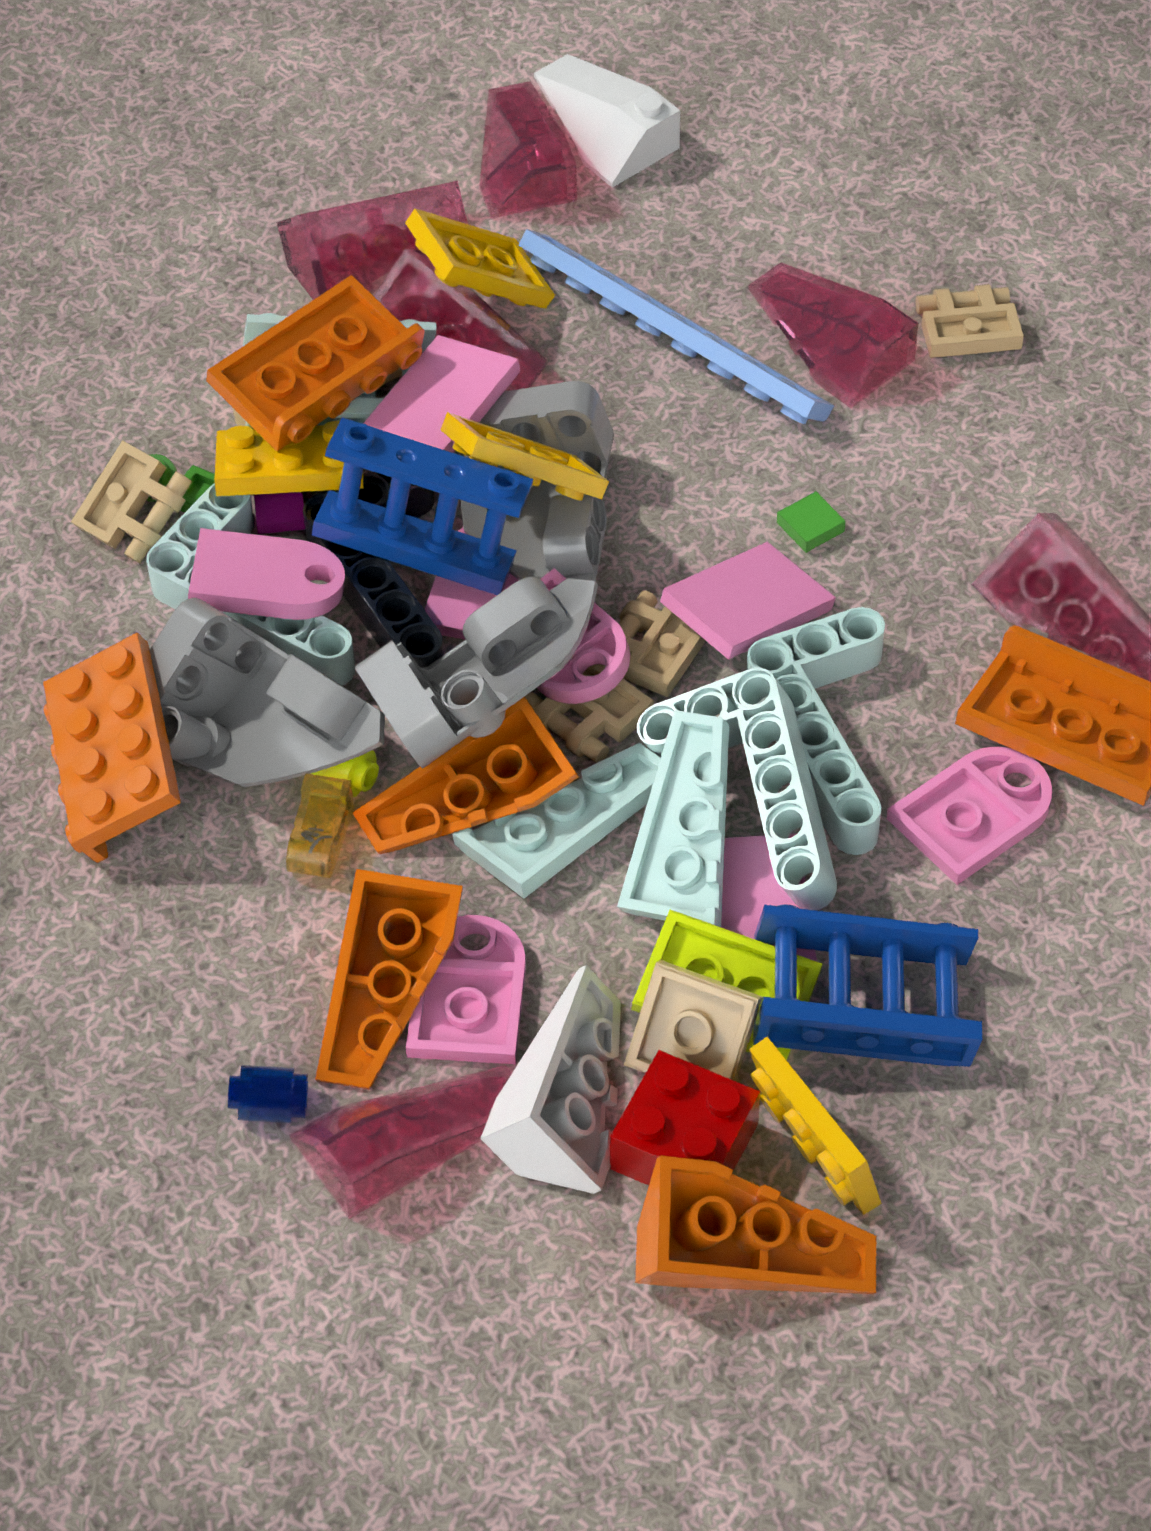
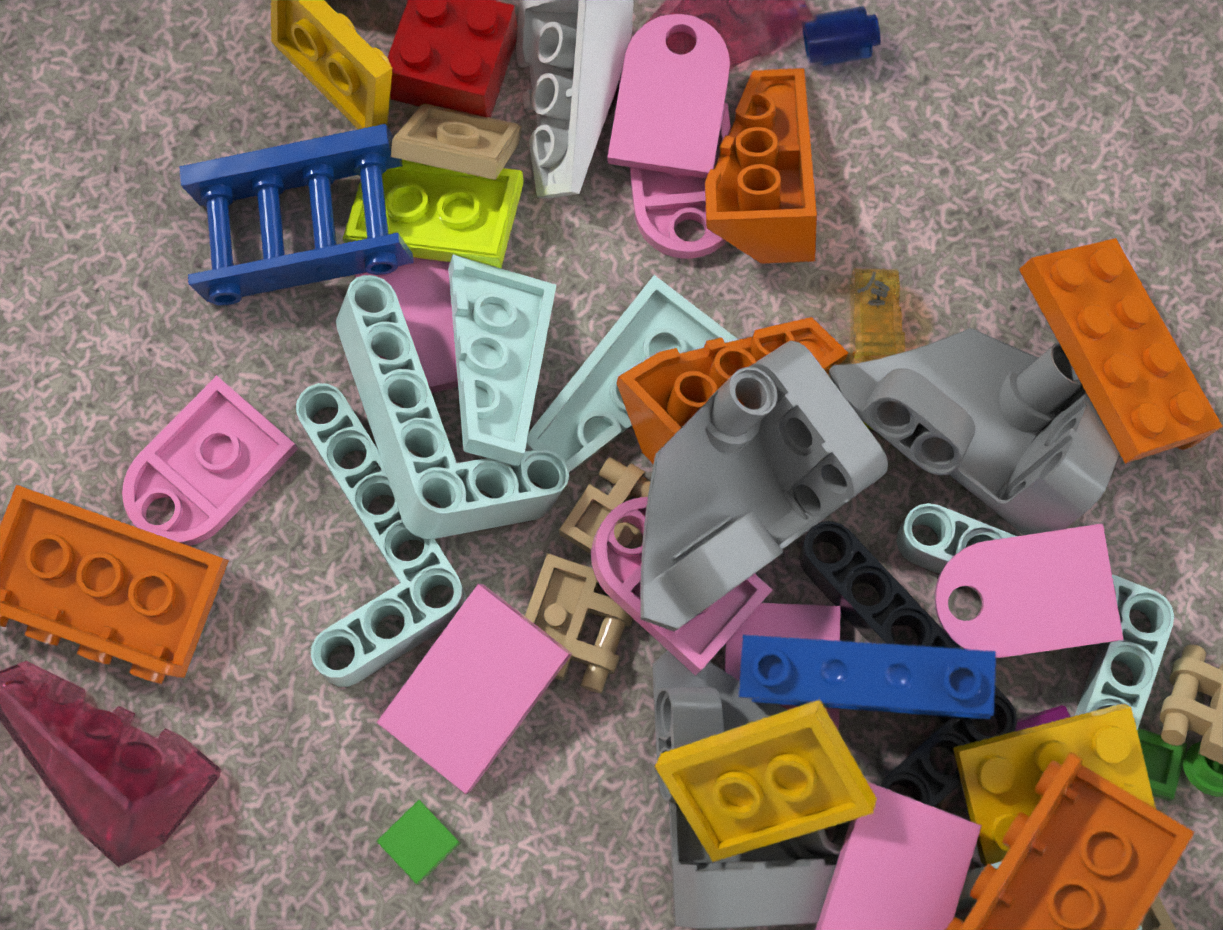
camera: 170 degrees right, 20 degrees up
(466, 1032) = (671, 101): none -> bright pink tile

